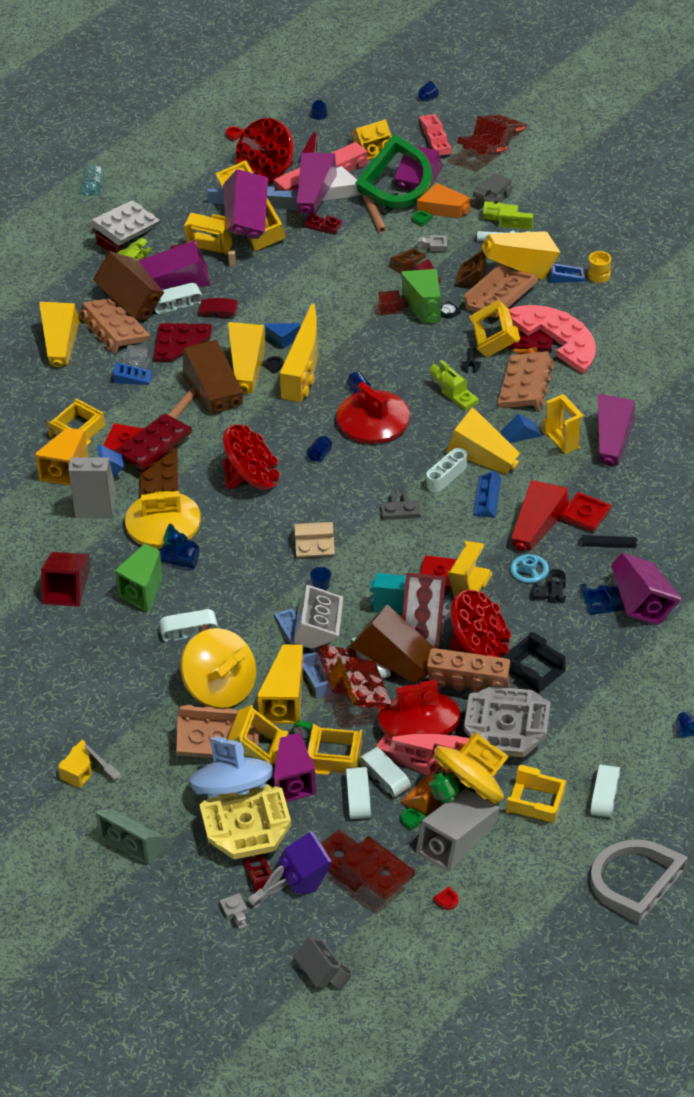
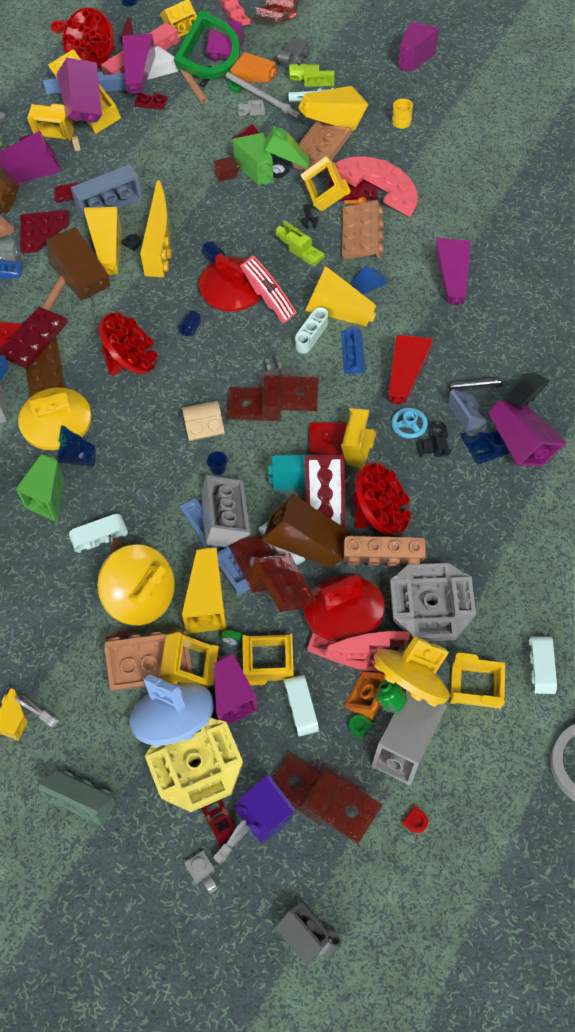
camera: 10 degrees left, 15 degrees up
(178, 297) = (34, 186): light aqua beam -> none
(258, 308) = (108, 190): none -> sand blue brick
(282, 333) = (134, 211): blue slope -> none
(383, 769) = (323, 676): light aqua beam -> none
(394, 523) = (274, 397): none -> clear red bracket
(401, 263) = (228, 131): reddish brown slope -> none
(408, 423) = (268, 288): none -> slope
(456, 284) = (283, 145): none -> bright green slope
(471, 247) = (286, 108): none -> light grey bar
(472, 271) = (294, 125): reddish brown slope -> none
(537, 645) = (441, 510): black piece -> none
(559, 274) = (368, 124): blue slope -> none
(565, 434) = (414, 284): yellow piece -> none
(585, 512) = (447, 356): red plate -> none
(592, 563) = (467, 410): none -> sand blue slope
(634, 197) = (417, 46): none -> magenta slope
(657, 549) = (526, 390): none -> black slope

